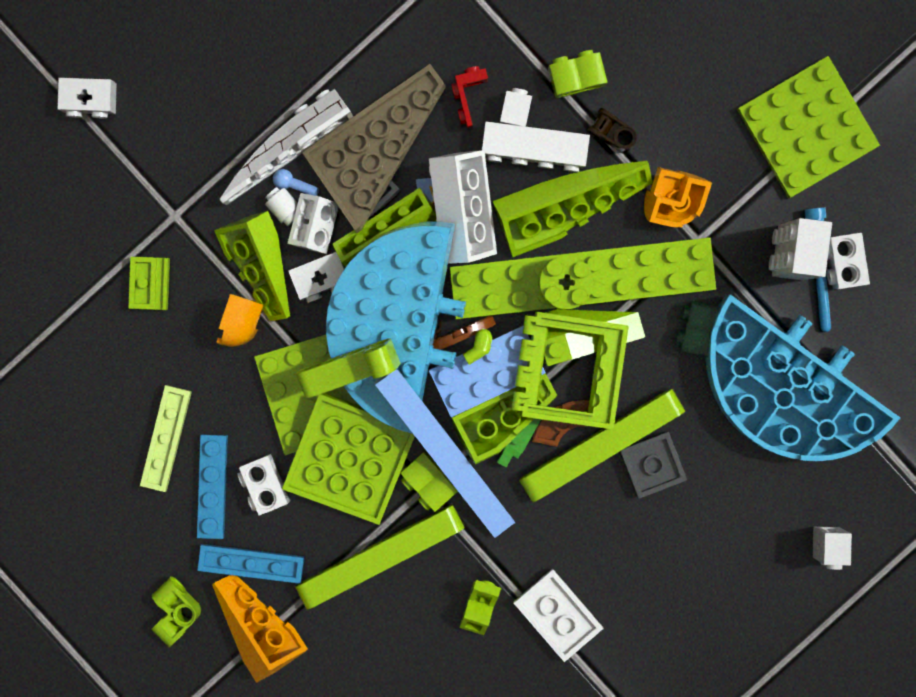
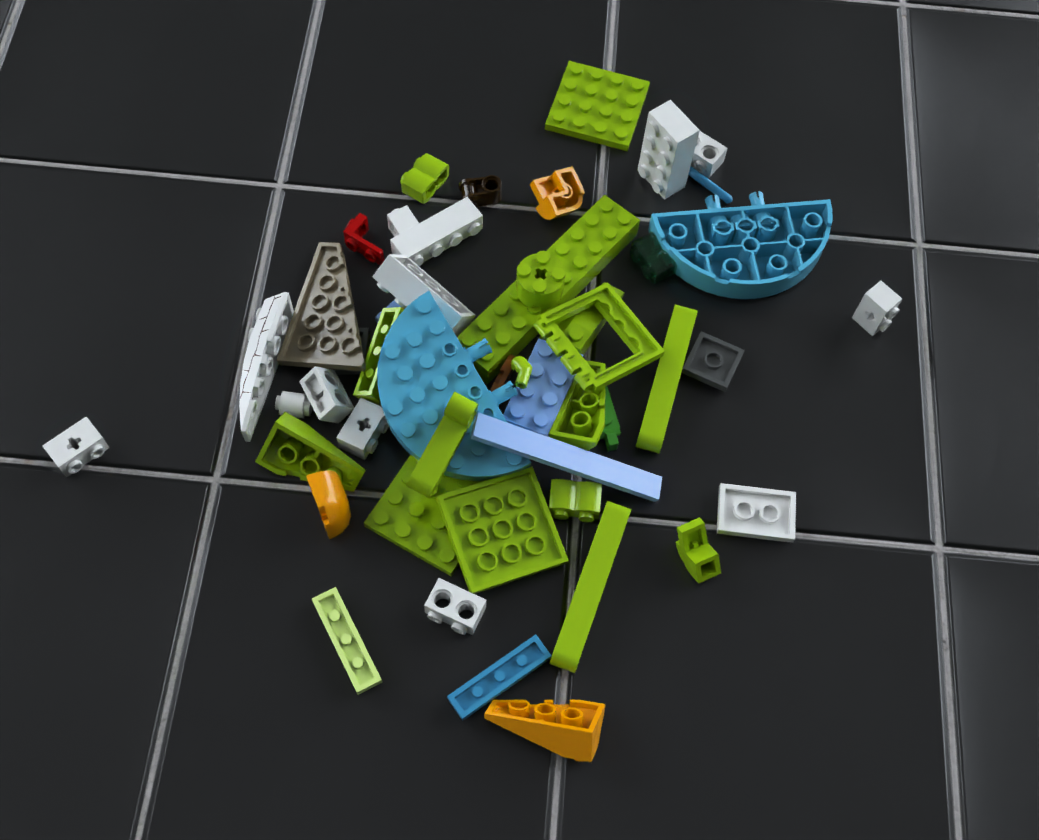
camera: 45 degrees left, 25 degrees down
(149, 283) = (235, 538): lime plate -> none
(171, 598) = (482, 782): lime piece -> none
(212, 486) = (416, 647): dark azure plate -> none
(283, 179) = (277, 388): light blue bar -> none
(550, 432) = (623, 392): dark orange tile -> none
(557, 205) = (486, 261): lime wedge -> none

